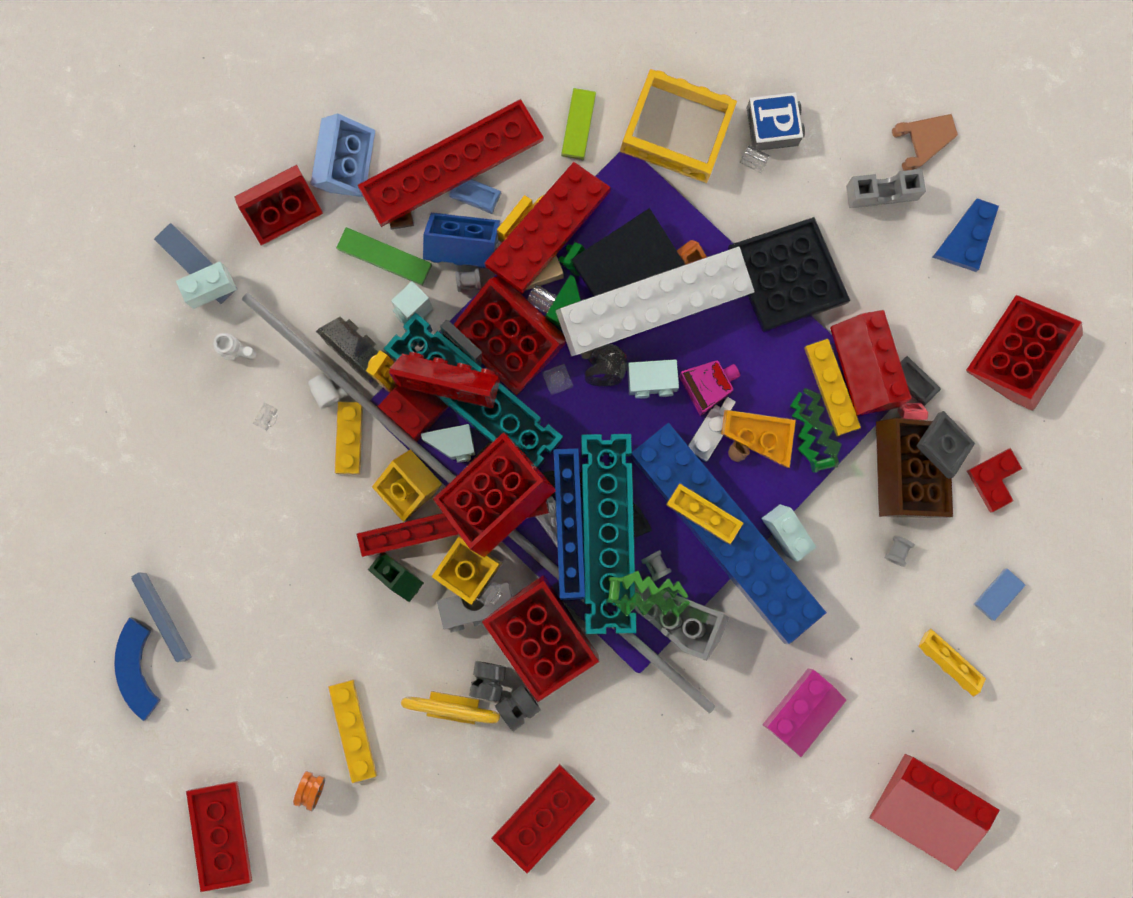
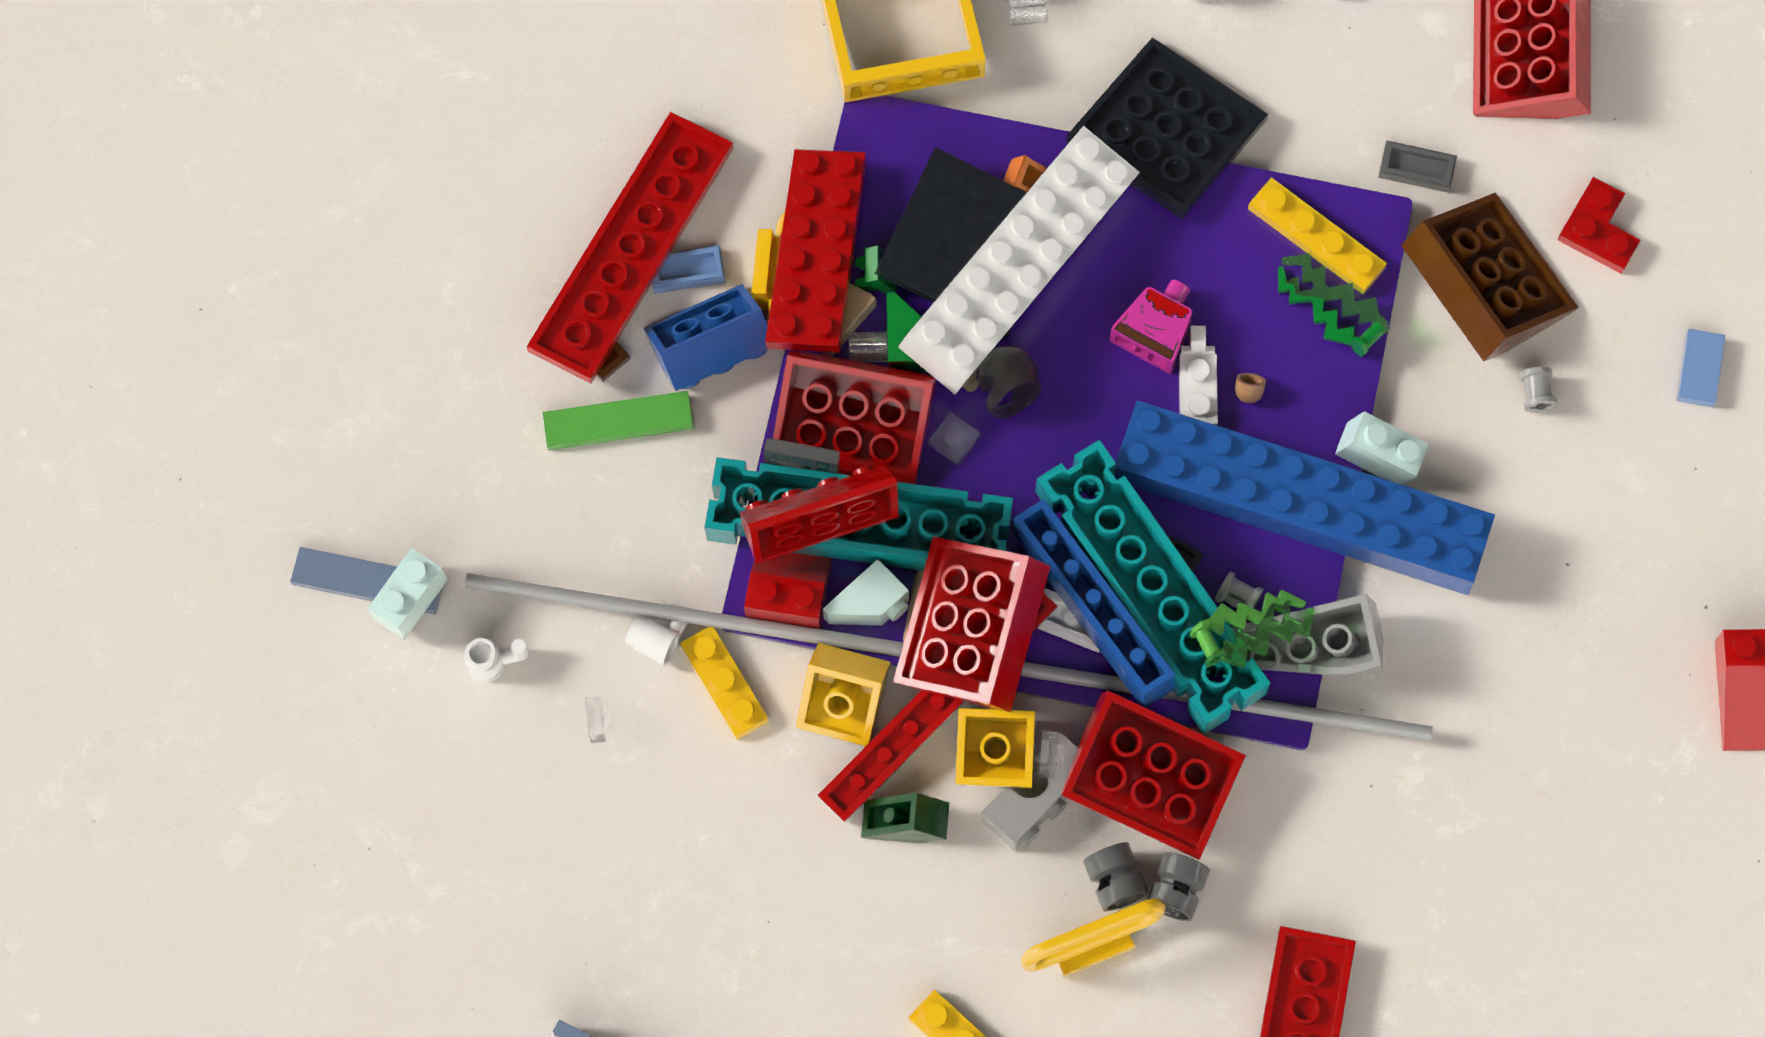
camera: 25 degrees left, 10 degrees down
(278, 205) = (433, 436): red slope -> none
(342, 155) = (478, 323): light blue slope -> none
(350, 346) = (664, 561): clear smoke slope -> none
(379, 369) = (728, 553): yellow plate -> none
(409, 301) = (698, 454): light aqua brick -> none
(468, 280) = (752, 383): light grey bush -> none
(578, 123) = (766, 100): lime tile -> none
(653, 378) = (1078, 360): light aqua brick -> none
(704, 514) = (1259, 482): yellow plate -> none
(762, 434) = (1265, 346): light orange wing -> none
(805, 711) = (1552, 664): dark pink slope -> none
(870, 363) = (1346, 175): red slope -> none
(913, 411) = (1439, 203): coral tile -> none
(945, 444) = (1508, 220): dark grey tile -> none
(952, 662) = (1696, 488): yellow plate -> none

